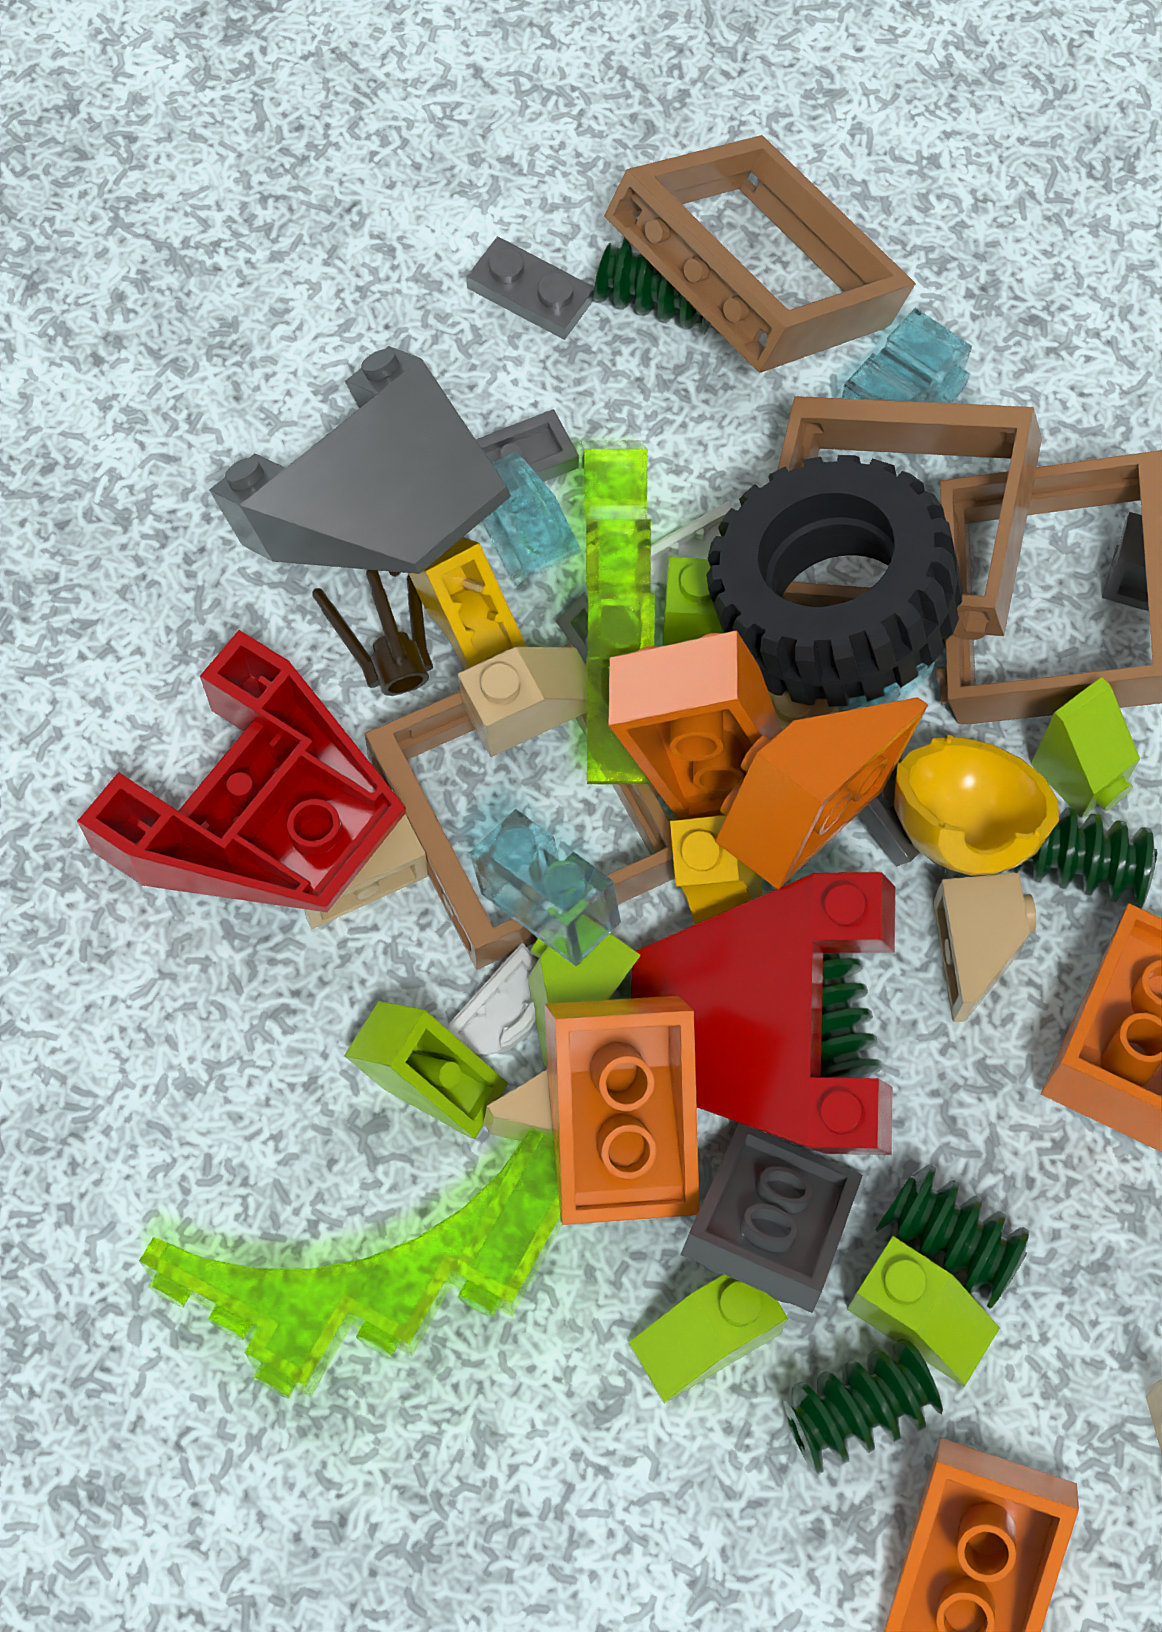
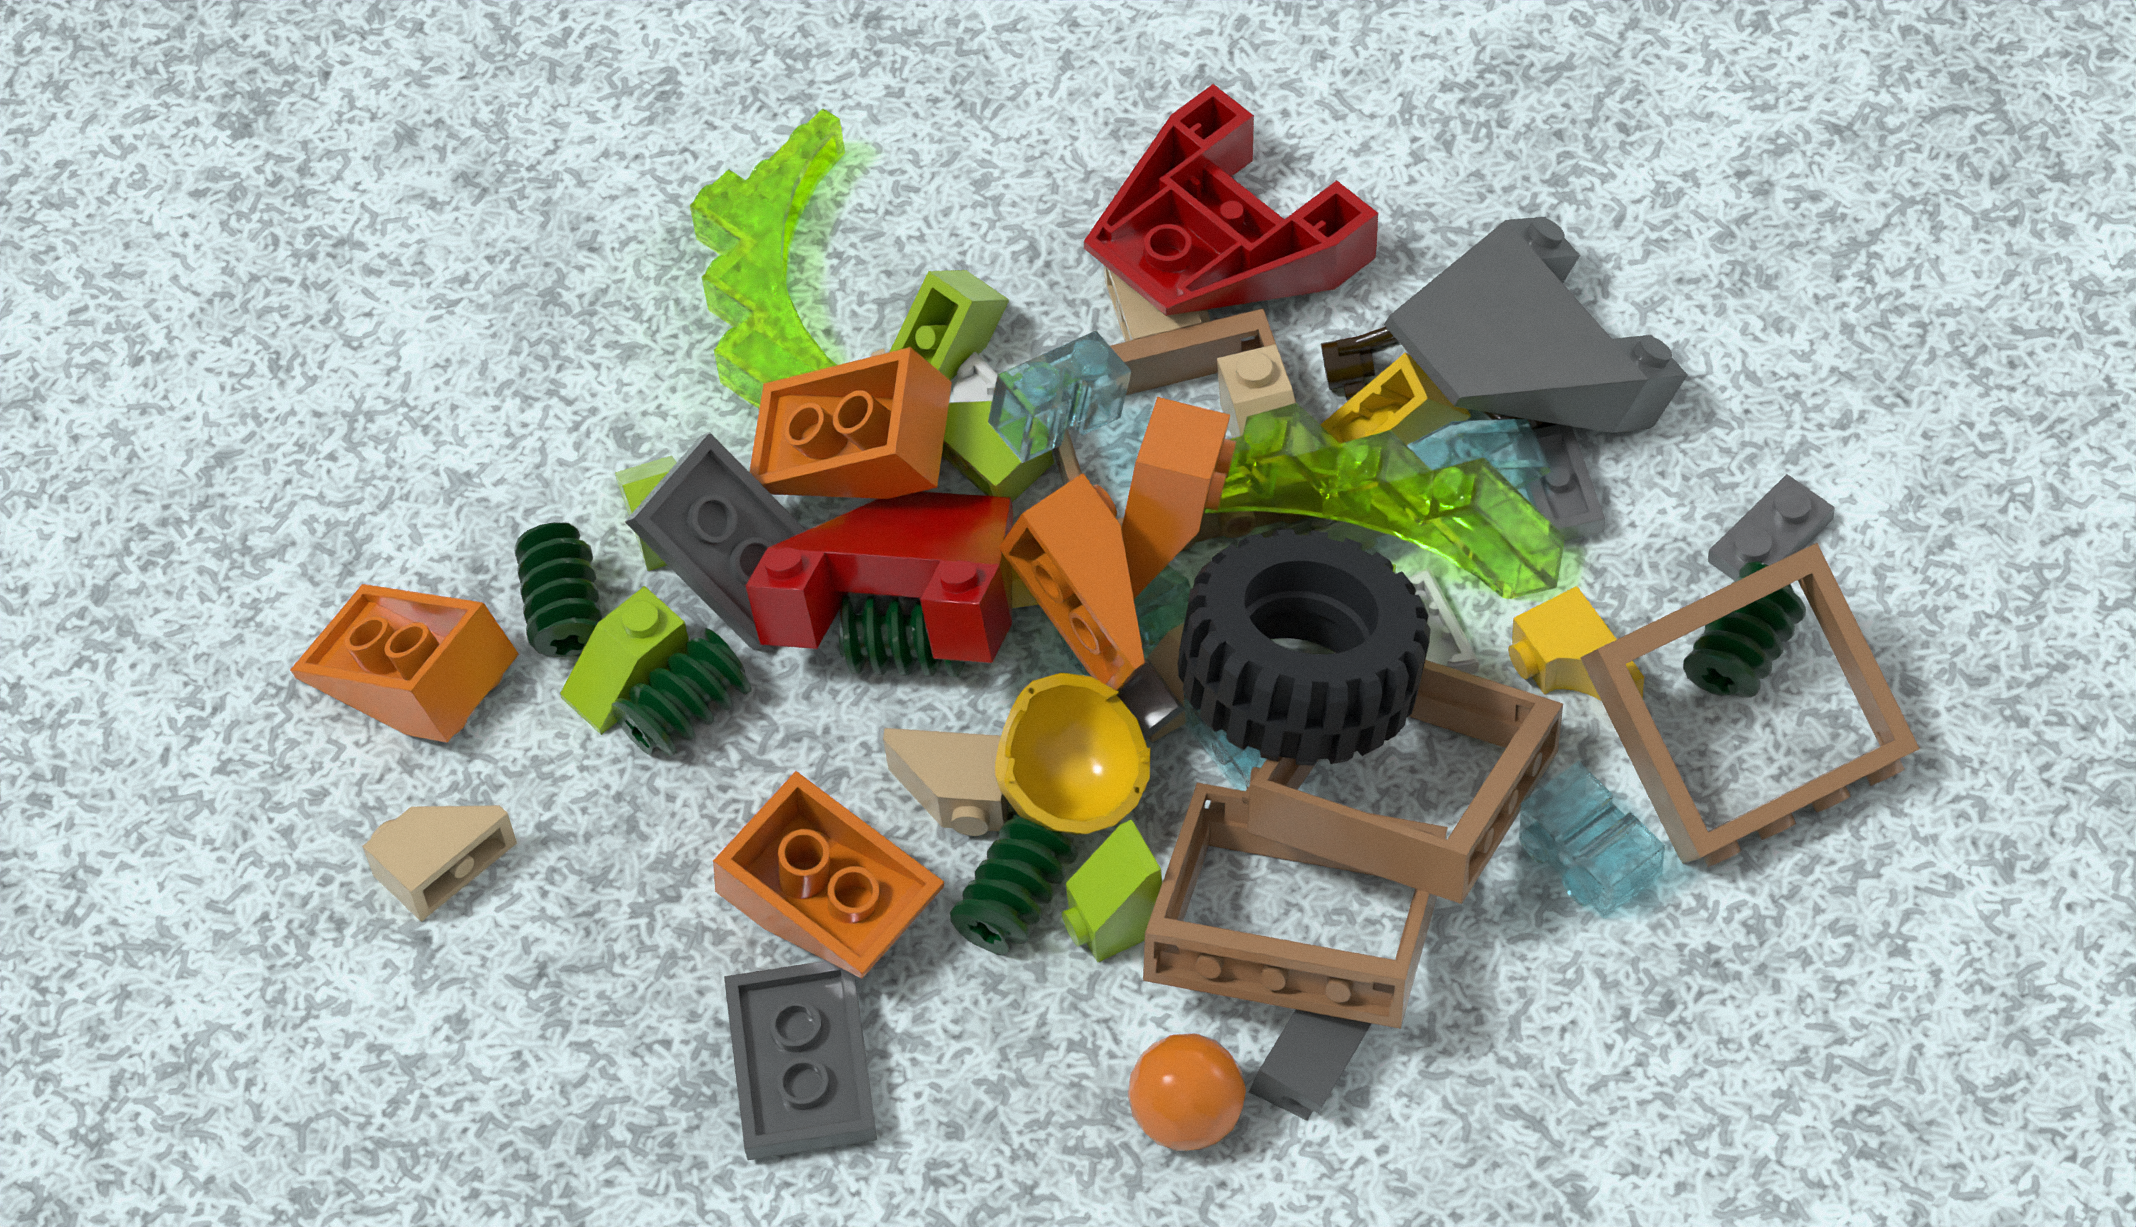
camera: 110 degrees right, 10 degrees down
(700, 422) = (1554, 637): none -> yellow arch

